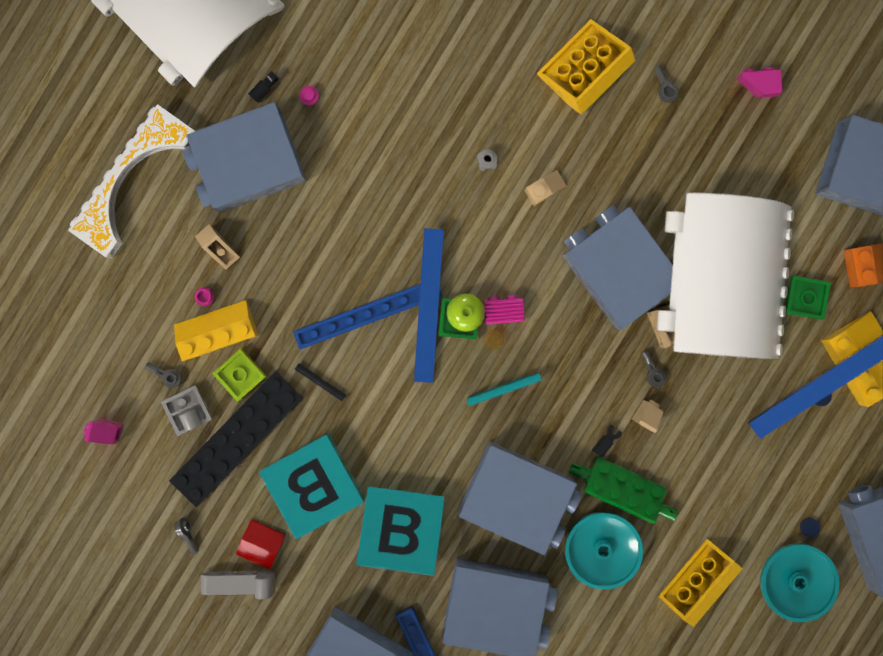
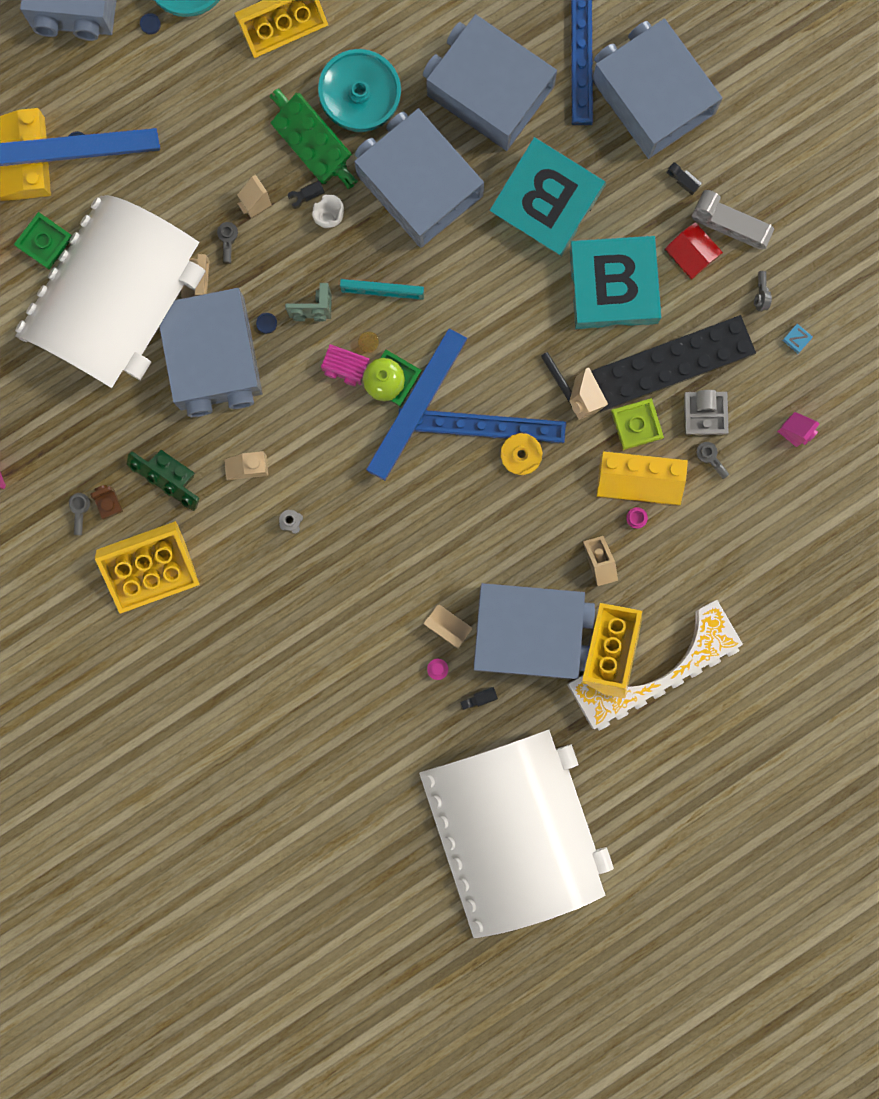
camera: 150 degrees left, 5 degrees down
(140, 509) = (797, 338): none -> dark azure tile
(170, 174) = (612, 649): none -> yellow slope
(292, 378) = (586, 395): none -> tan slope
(295, 602) = (684, 179): none -> black bar
(316, 298) = (532, 456): none -> yellow plate
(317, 134) = (448, 626): none -> tan panel
(548, 355) = (319, 311): none -> sand green bracket
(580, 433) = (328, 211): none -> white hair
(587, 316) = (266, 323): none -> dark blue piece
(607, 151) = (166, 474): none -> dark green bracket
(646, 104) = (106, 501): none -> reddish brown bracket

